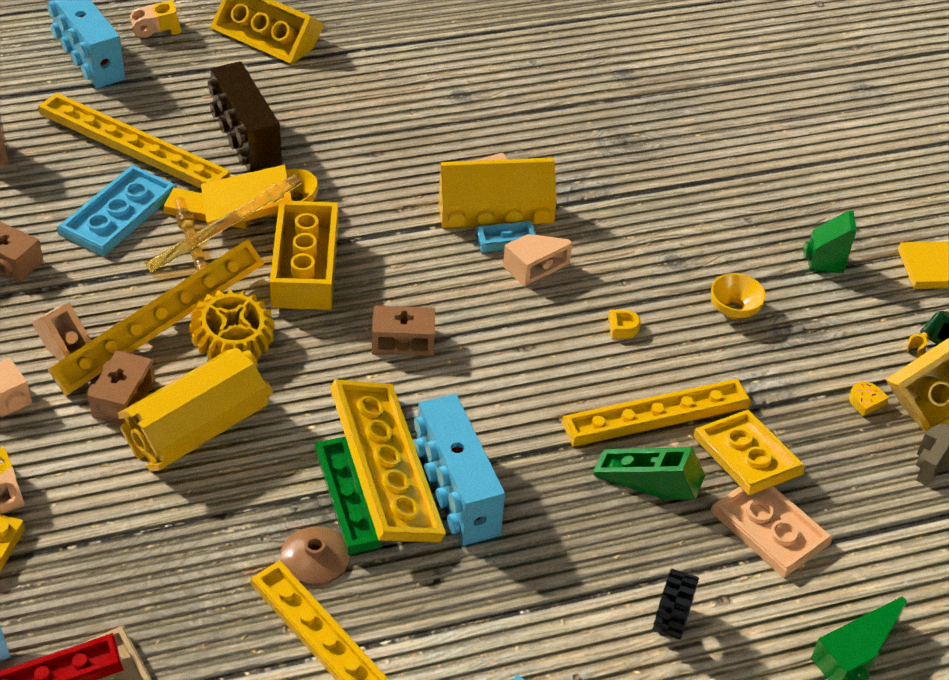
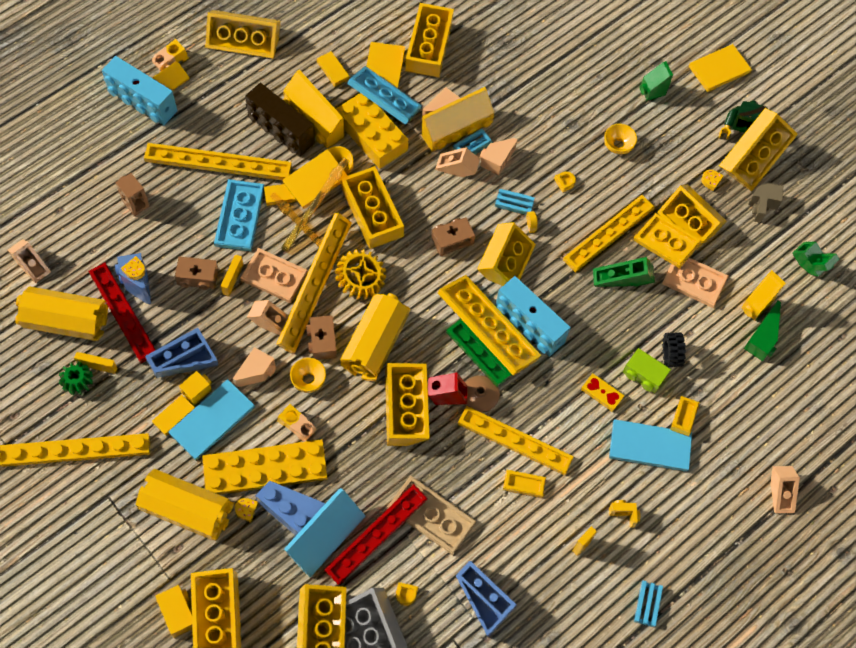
camera: 25 degrees left, 20 degrees up
(51, 269) = (232, 275): none -> yellow tile
(60, 417) = (304, 367): none -> yellow piece
(109, 289) = (274, 275): none -> light nougat tile
(141, 41) = (172, 76): none -> yellow slope
(177, 515) = (406, 404): none -> yellow slope
(258, 520) = (447, 389): none -> red torso
(300, 123) = (316, 108): none -> yellow slope
(362, 96) = (332, 68): none -> yellow tile
(368, 171) = (373, 130): none -> yellow brick
(407, 133) = (385, 95): none -> medium azure tile
(433, 115) = (386, 61): none -> yellow tile
(471, 247) = (458, 162): none -> light nougat slope
(480, 375) = (506, 254): none -> yellow slope
(513, 100) = (429, 40): none -> yellow brick
(520, 629) = (602, 392): none -> yellow tile
(530, 320) = (514, 199): none -> medium azure tile
(538, 354) = (532, 223): none -> yellow tile
(613, 622) = (646, 371): none -> lime brick
(810, 429) = (692, 214): none -> yellow slope
(876, 574) = (763, 296): none -> yellow slope

